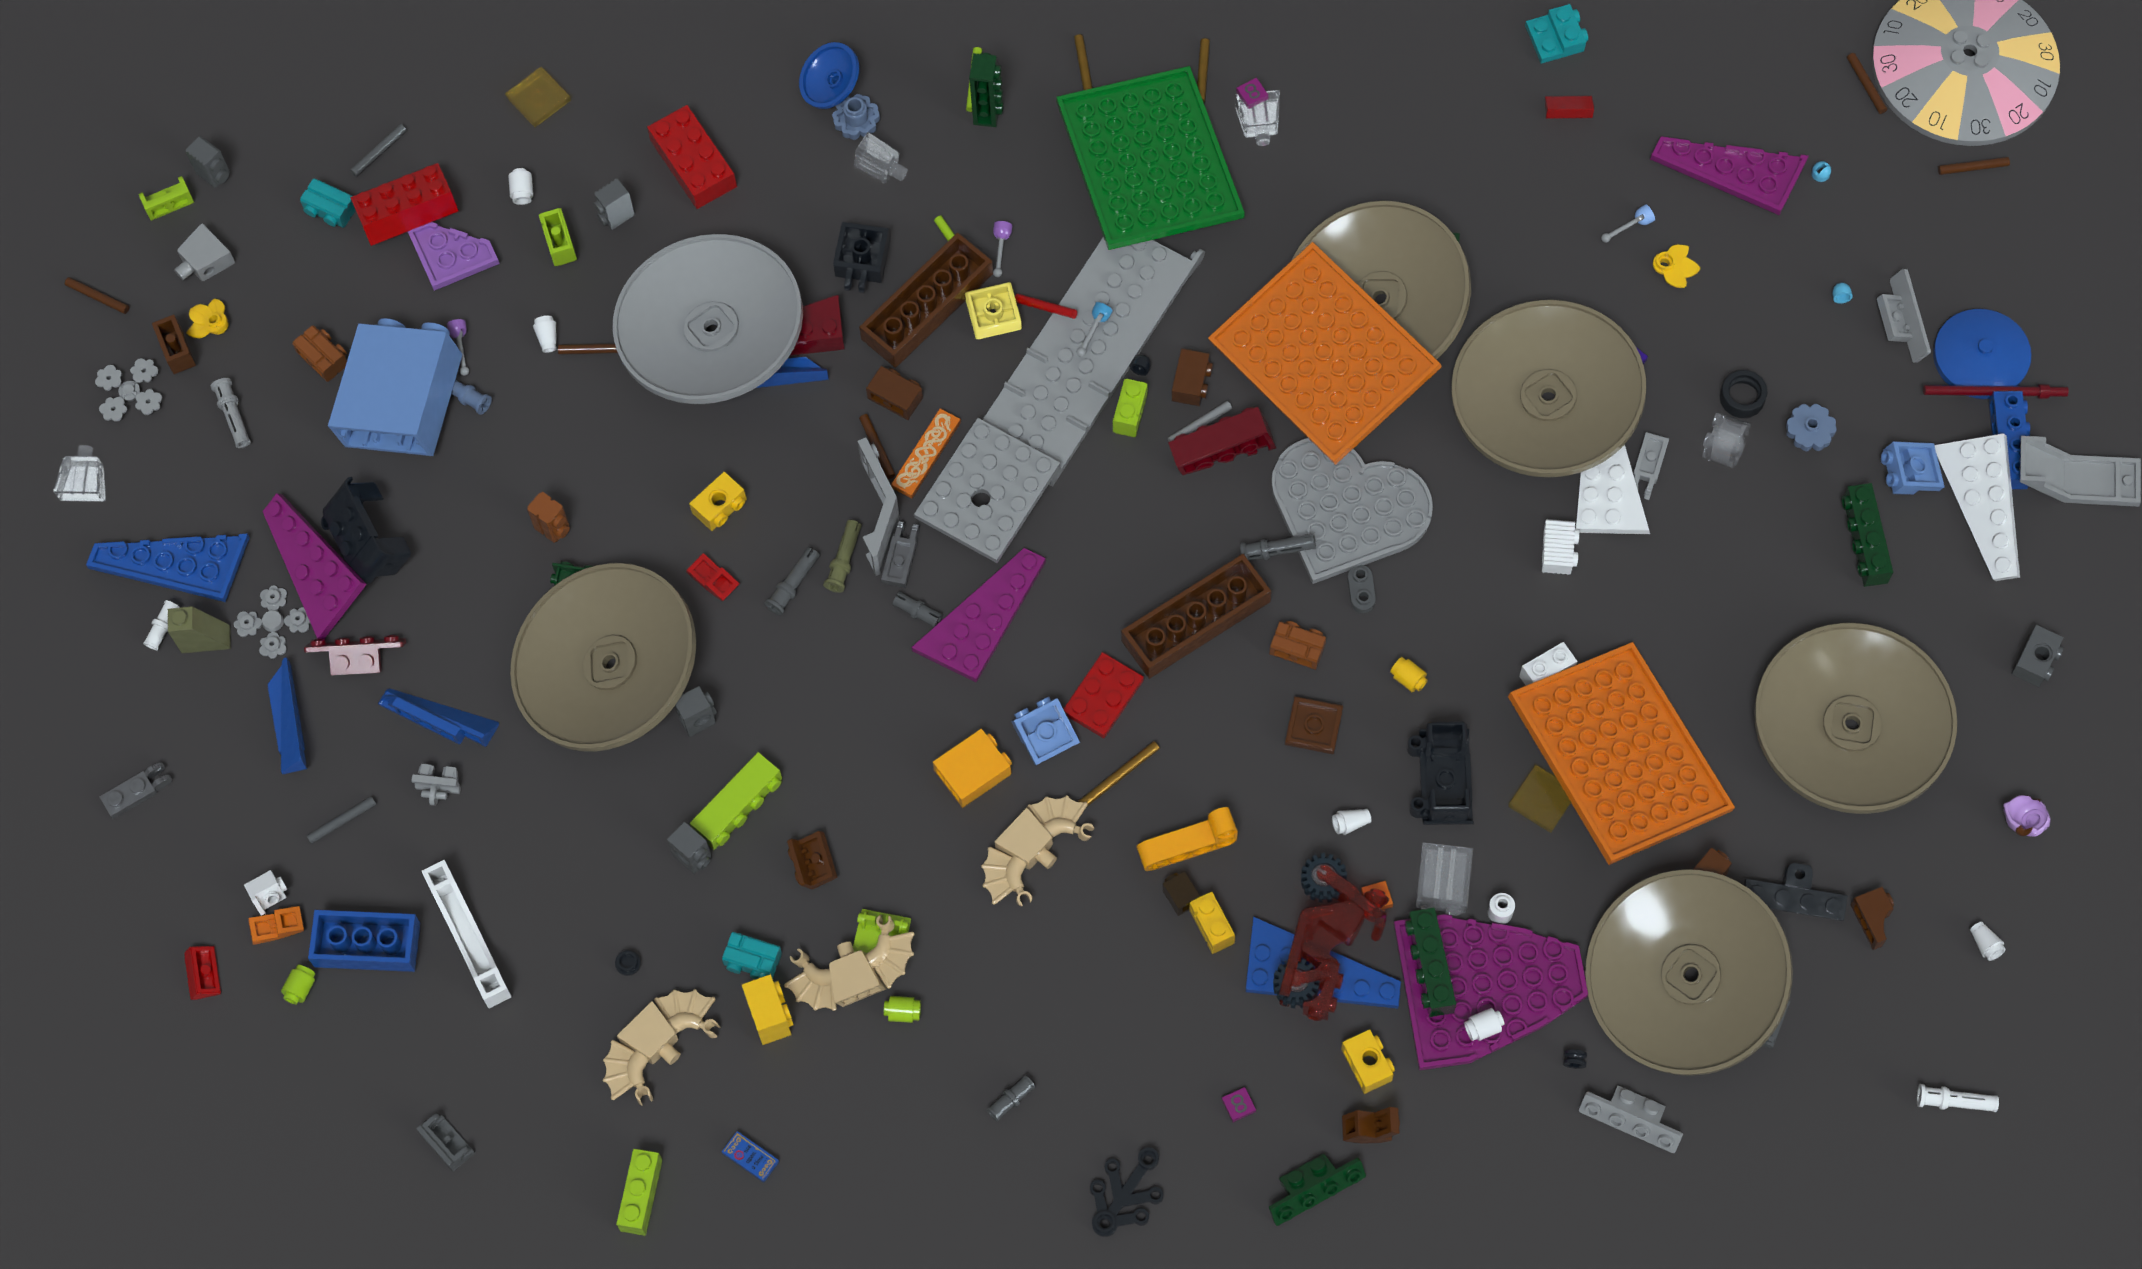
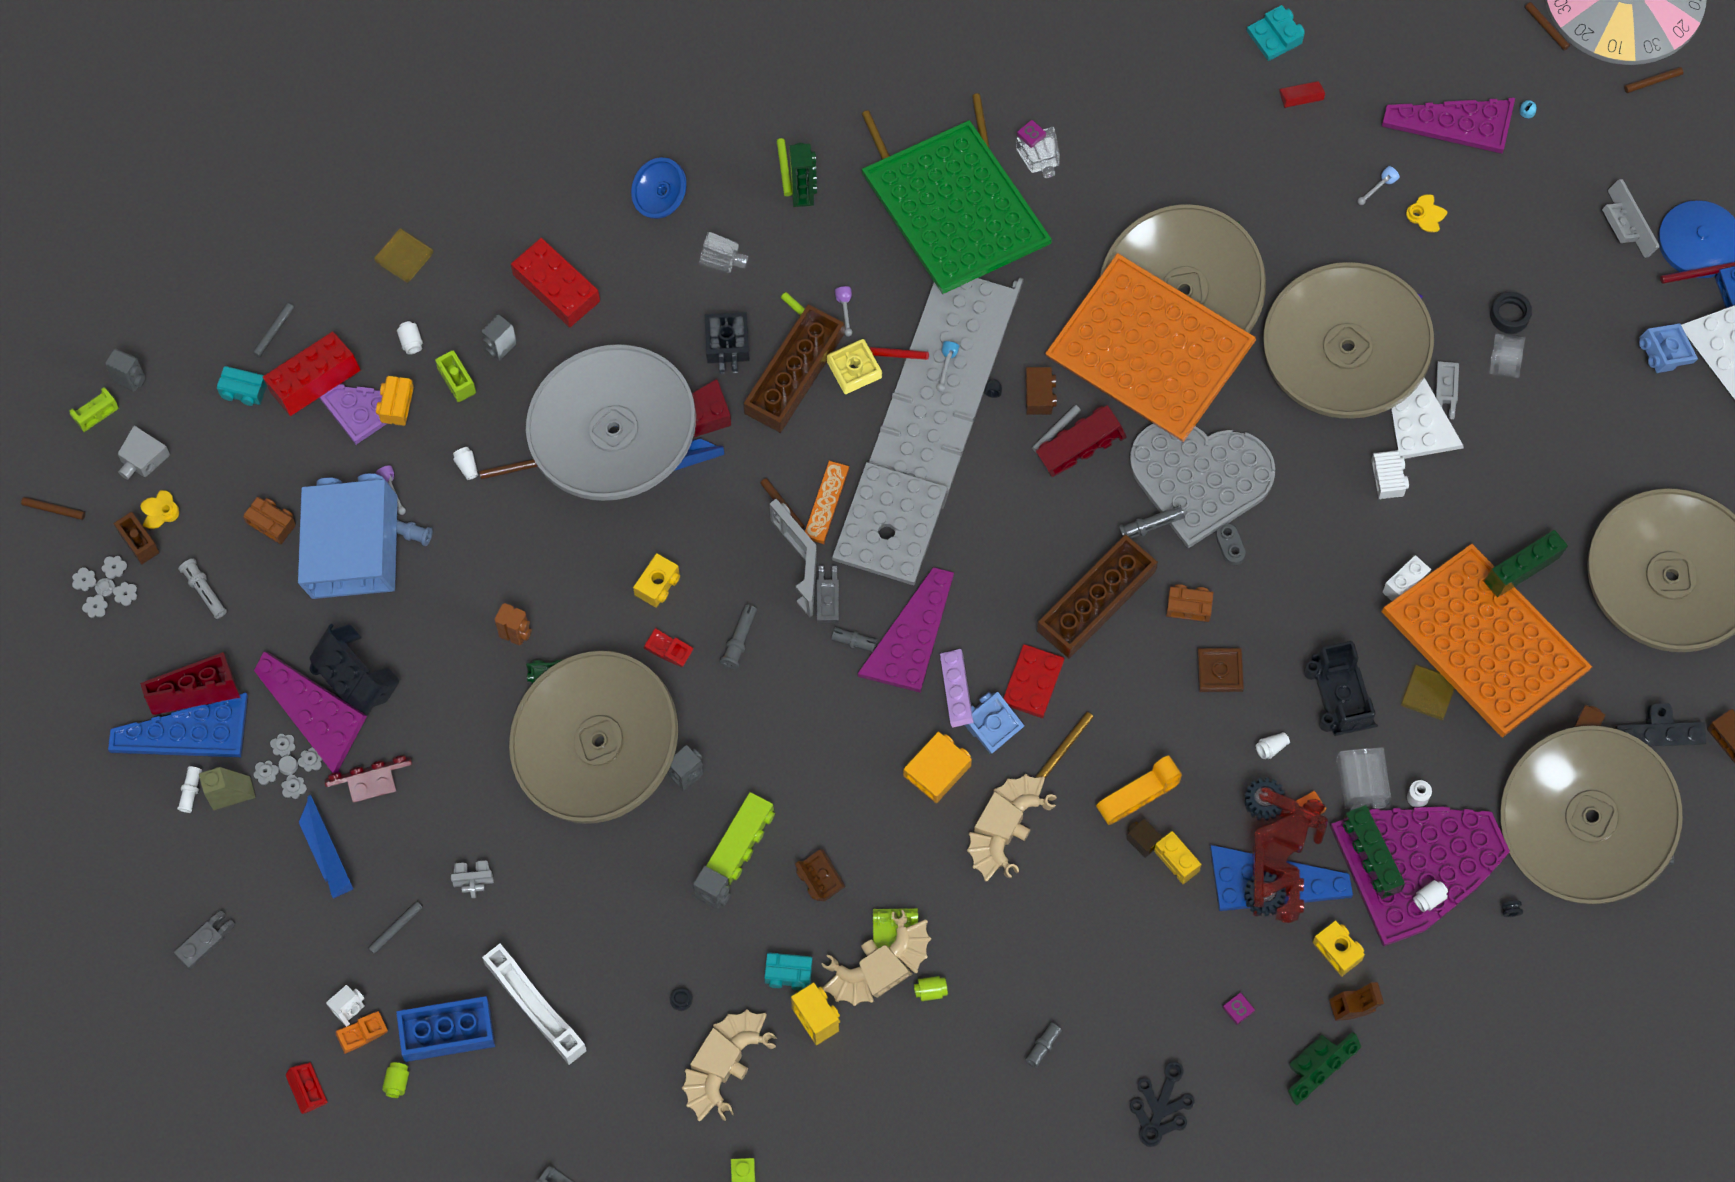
camera: 15 degrees left, 0 degrees up
(81, 477) = (82, 673): clear torso -> none
(190, 514) = (191, 686): none -> dark red wedge
(440, 718) = (459, 820): blue wedge -> none
(485, 250) = (395, 400): none -> light orange brick
(750, 1156) = (831, 1144): blue tile -> none
(840, 565) = (778, 615): olive pin -> none
(856, 116) = (690, 220): sand blue plant -> none
(894, 392) = (786, 454): reddish brown brick -> none
(1014, 685) = (956, 688): none -> lavender plate
(1130, 407) = (994, 427): lime brick -> none
(1409, 674) = (1290, 610): yellow brick -> none
(1633, 1116) = (1572, 946): light grey bracket -> none
(1687, 676) = (1526, 563): none -> dark green brick
(1811, 427) = (1576, 330): sand blue plant -> none
(1842, 293) = (1571, 210): medium azure hinge -> none
(1867, 535) = (1645, 412): dark green brick -> none

